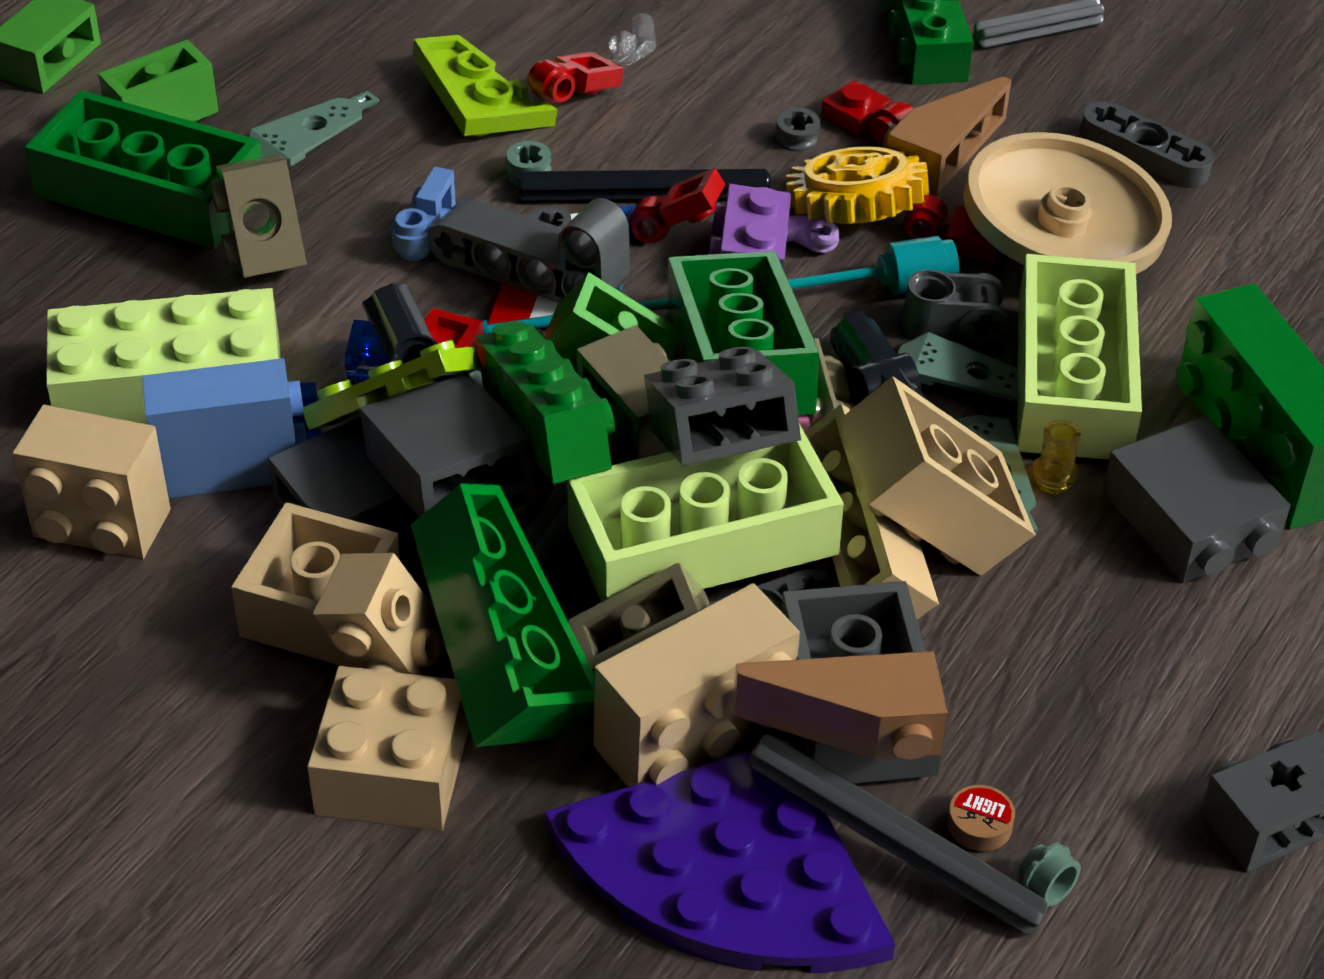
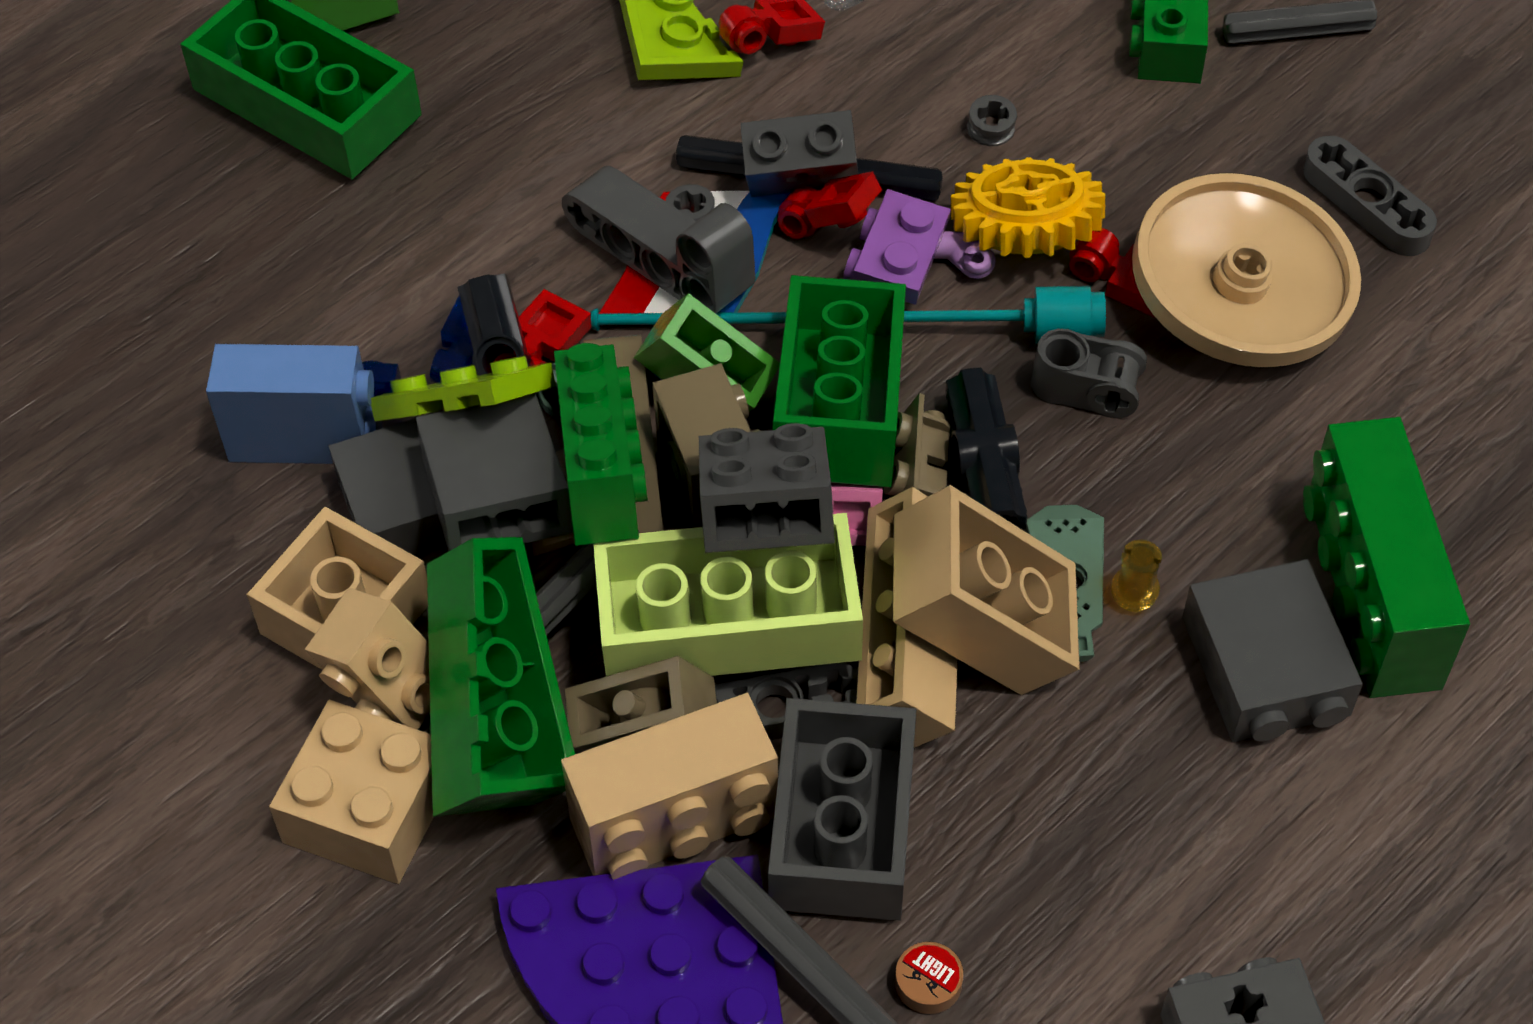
camera: 15 degrees right, 10 degrees up
(92, 481) = (152, 445): tan brick -> none
(105, 348) = (259, 295): yellowish green brick -> none
(279, 241) = (400, 126): dark tan brick -> none
(293, 134) = (456, 57): sand green piece -> none
(427, 207) = (576, 163): medium blue plate -> none
(527, 157) = (696, 111): sand green bush -> none
(640, 162) = (798, 152): none -> dark grey brick
(855, 703) = (818, 851): medium nougat slope -> none
(862, 108) = (1071, 105): red plate -> none
(951, 129) = (1151, 151): medium nougat slope -> none
(954, 365) = (1059, 436): sand green piece -> none
(1078, 352) = (1196, 456): yellowish green brick -> none

